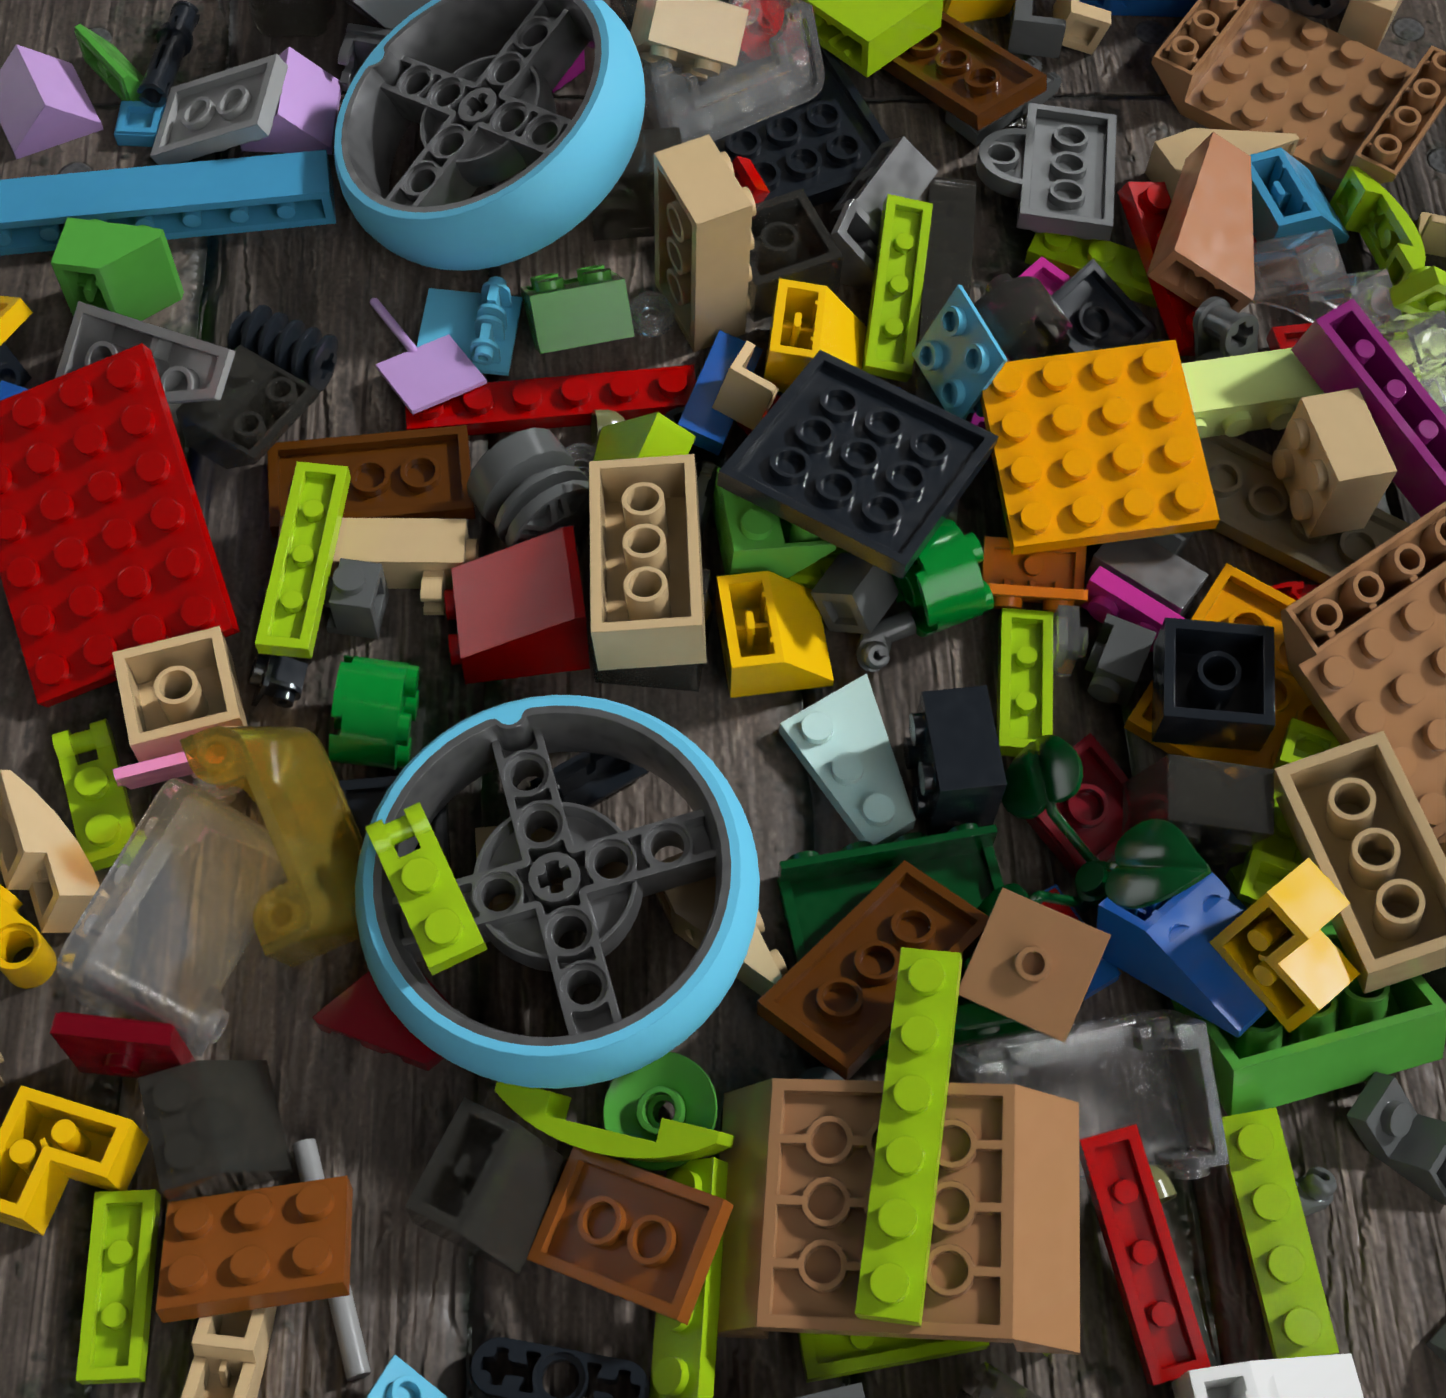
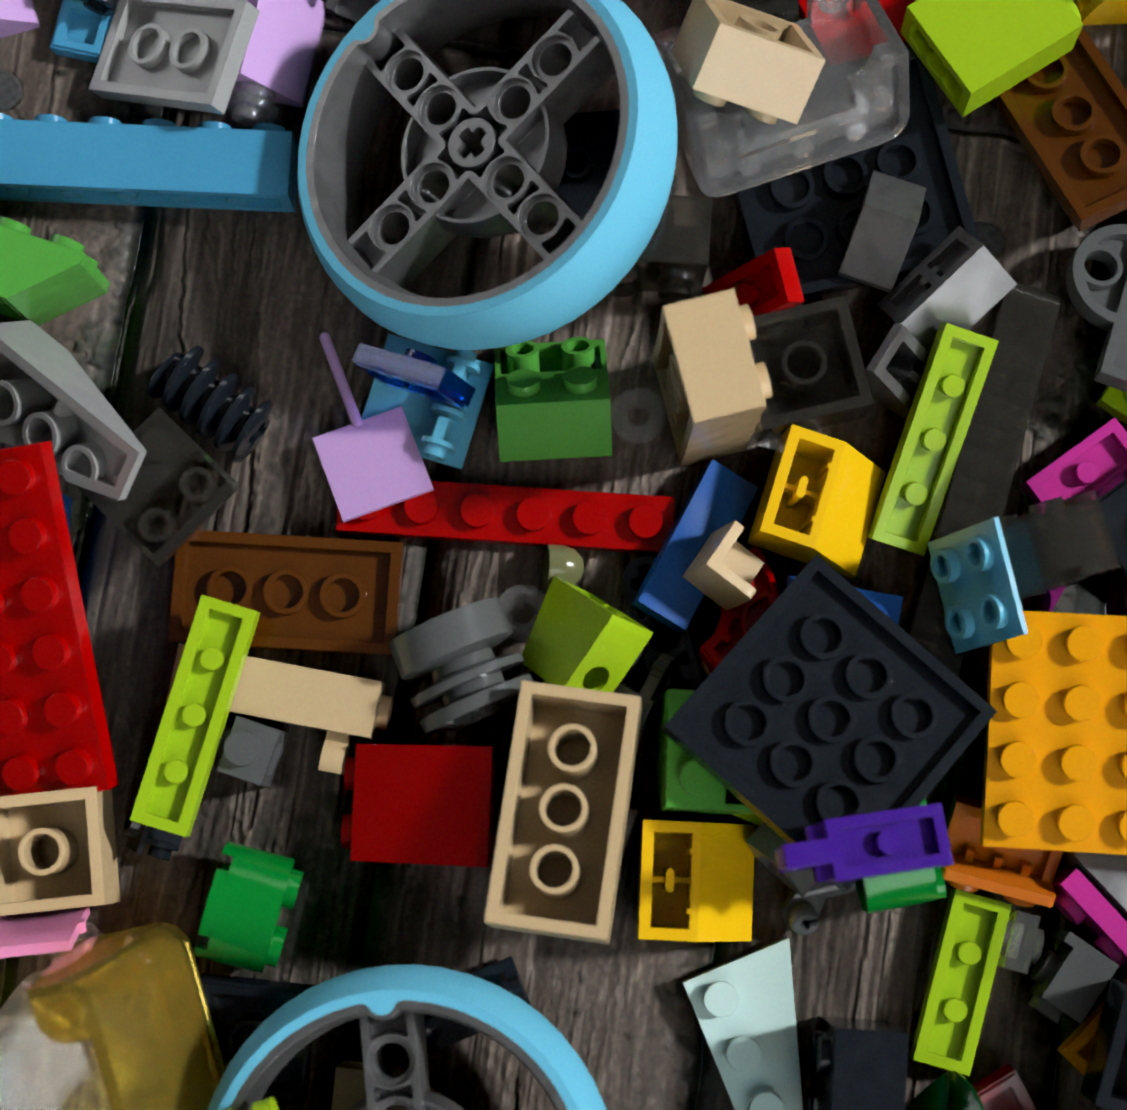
camera: 15 degrees right, 20 degrees up
(287, 140) = (252, 104): none -> clear plate
(456, 292) = (414, 373): none -> clear blue plate
(821, 158) = (882, 231): none -> flat silver slope
(912, 522) = (870, 845): none -> dark purple hinge

